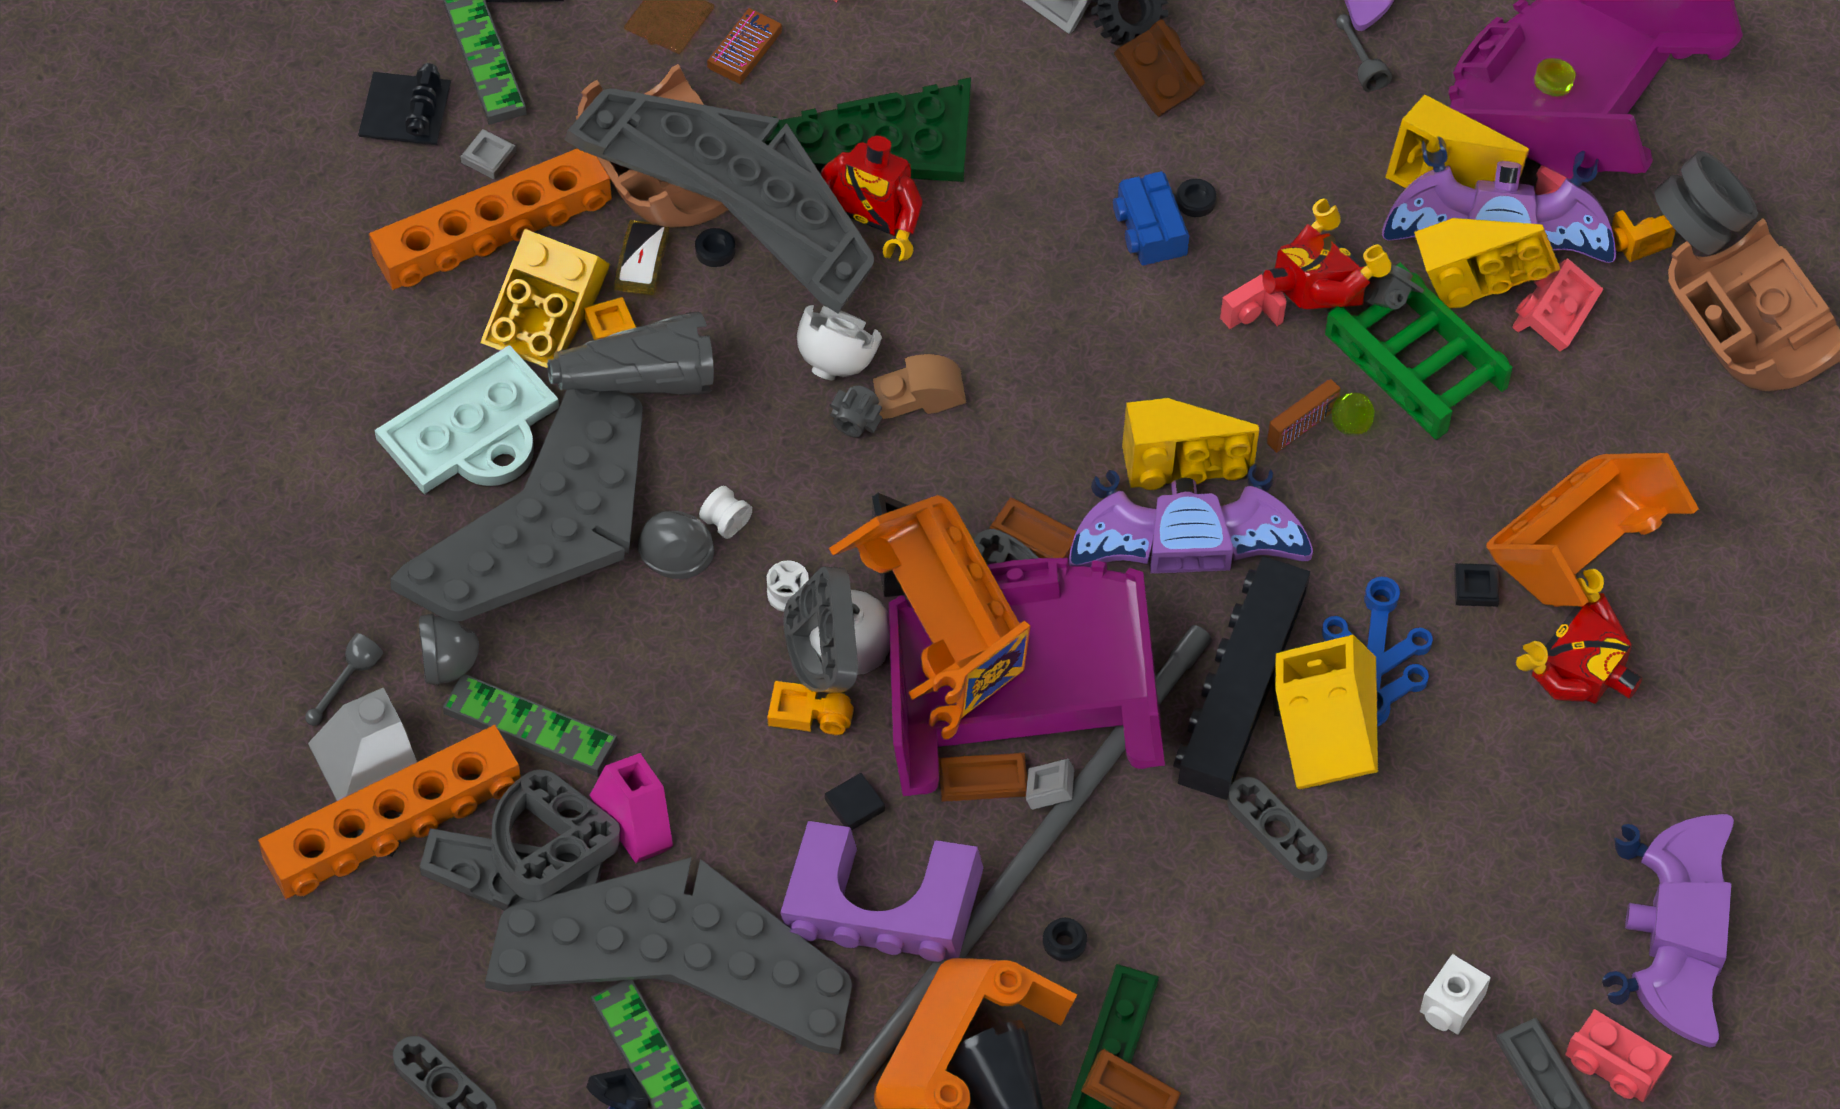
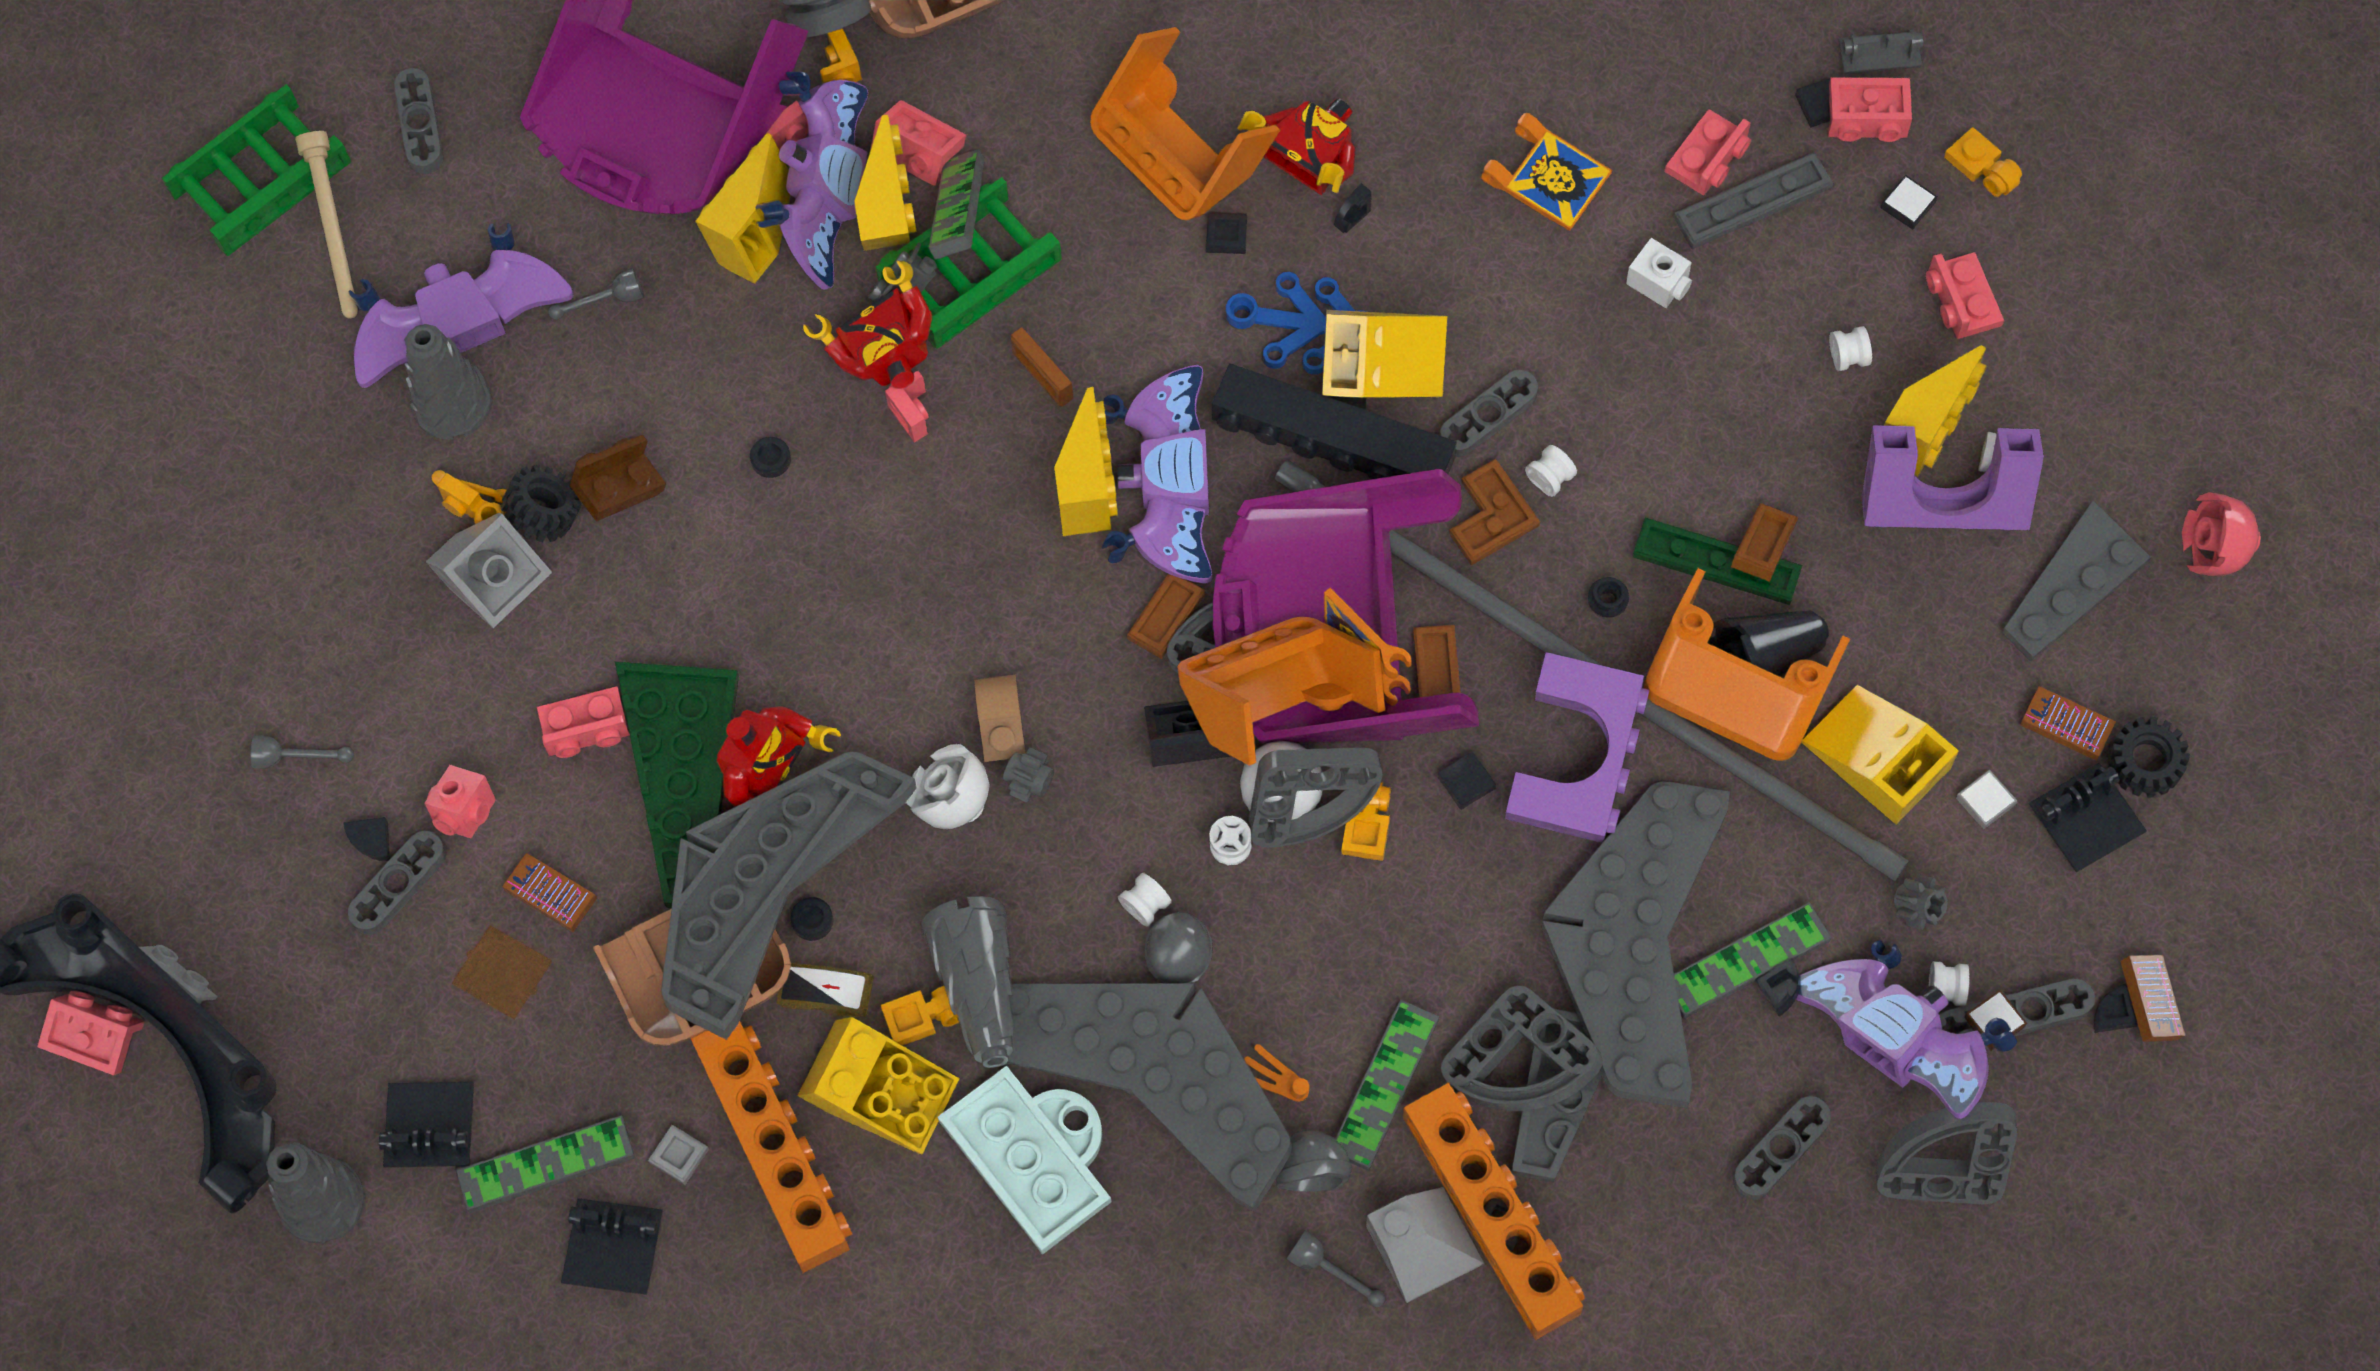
camera: 85 degrees left, 10 degrees up
(533, 641) = (1287, 1085): none -> orange piece
(637, 801) = (1483, 974): dark pink slope -> none
(911, 58) = (583, 722): none -> coral bracket
(1050, 784) = (1450, 603): light grey tile -> none
(1152, 218) = (801, 495): blue brick -> none
(1159, 842) = (1502, 515): none -> dark orange tile
(1208, 882) = (1551, 470): none -> white wheel
(1353, 413) = (1039, 324): clear neon green tile -> none
(1473, 324) = (957, 204): none -> tile
(1512, 700) = (1355, 208): none -> black tile
(1554, 77) = (650, 120): clear neon green tile -> none
(1571, 900) = (1552, 178): none -> flag
(1685, 925) = (1582, 87): medium lavender torso -> none

